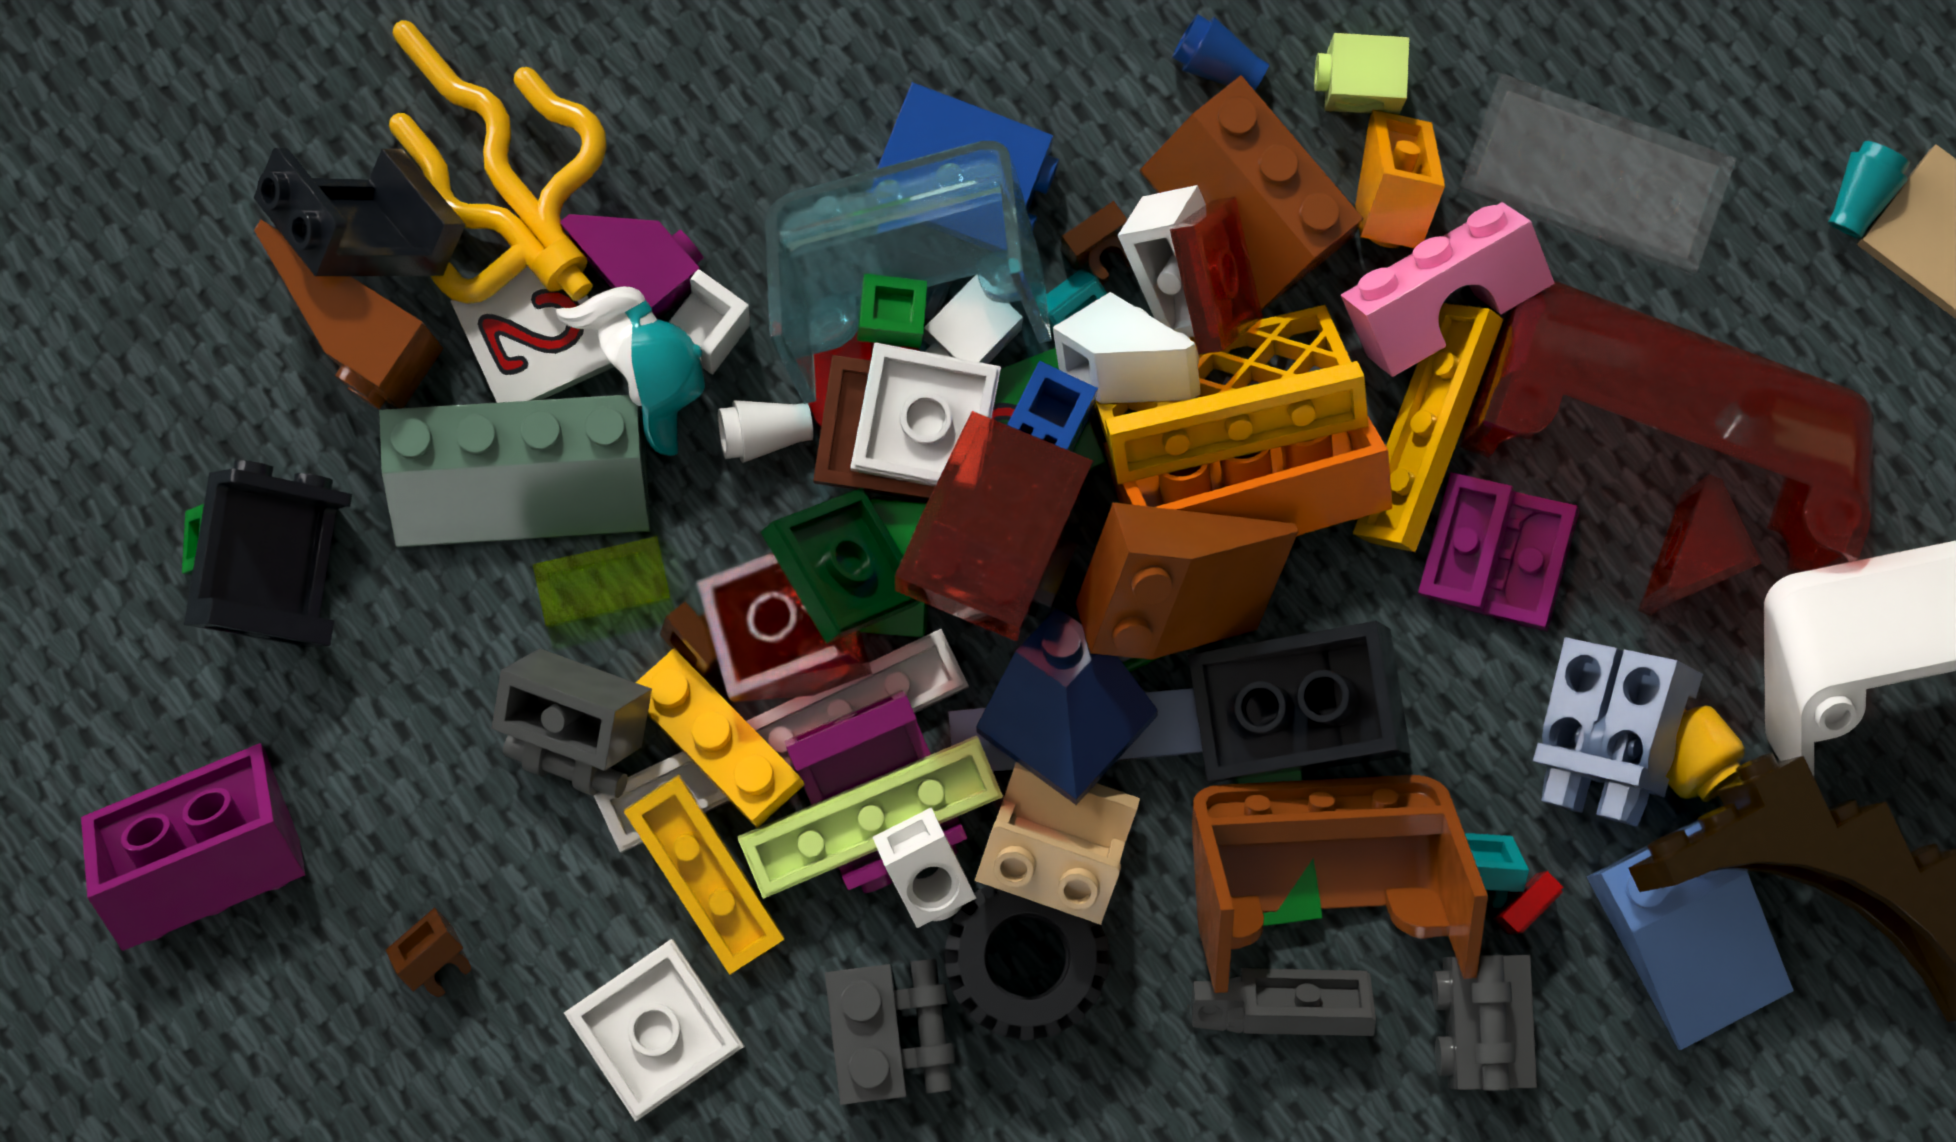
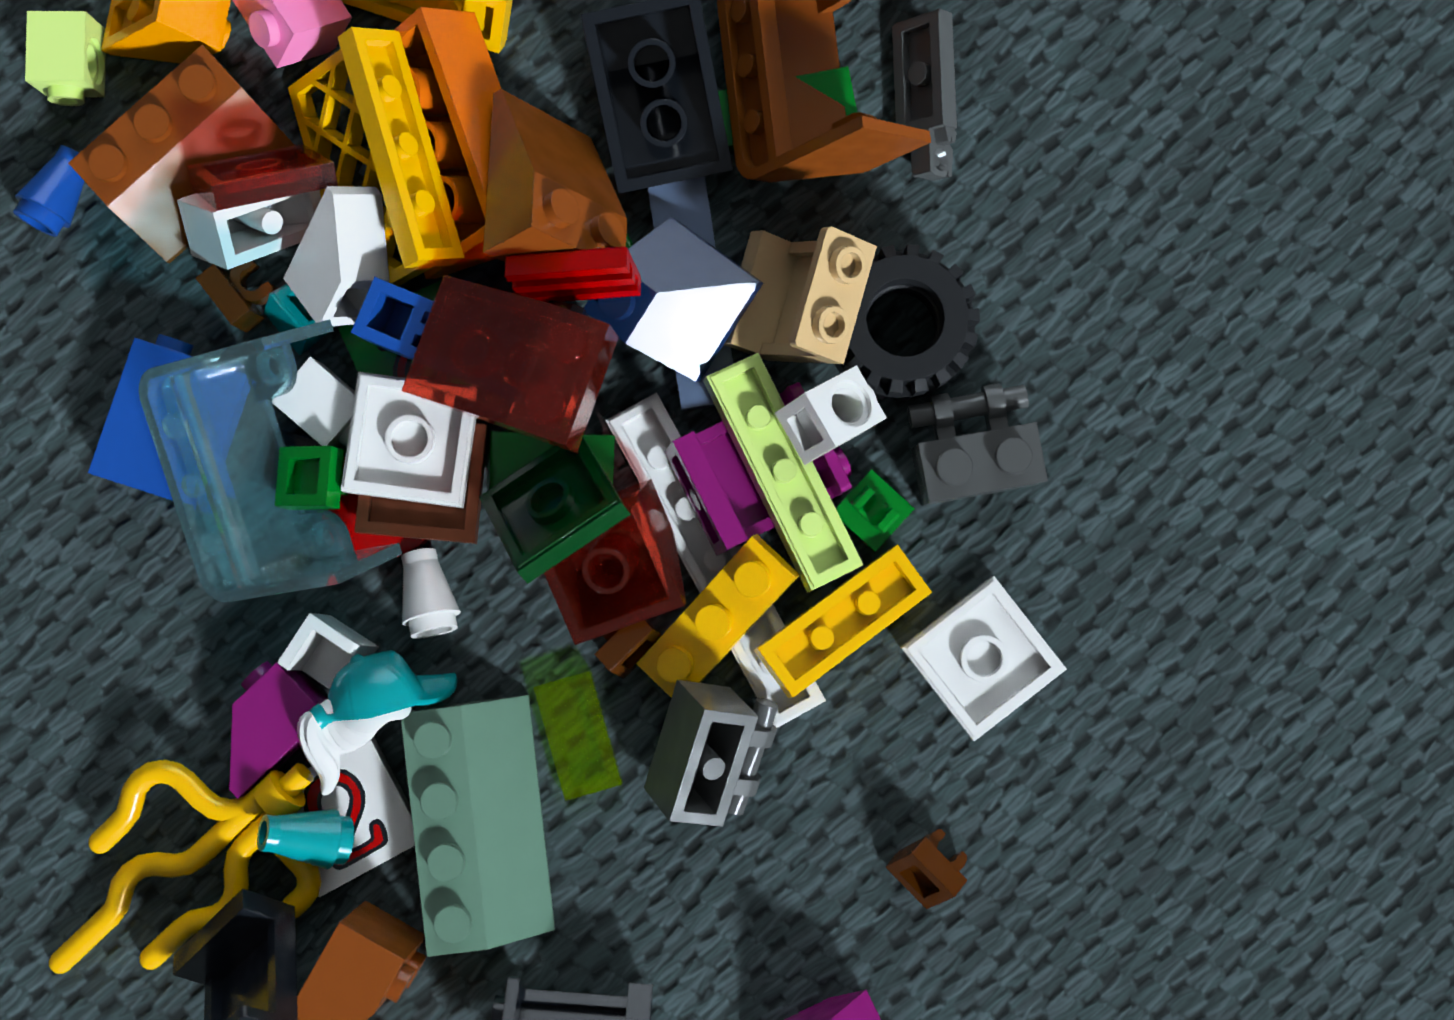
camera: 90 degrees left, 5 degrees up
(513, 295) = (308, 837): none -> teal cone
(824, 916) = (873, 510): none -> green tile
(1086, 597) = (574, 274): none -> red tile

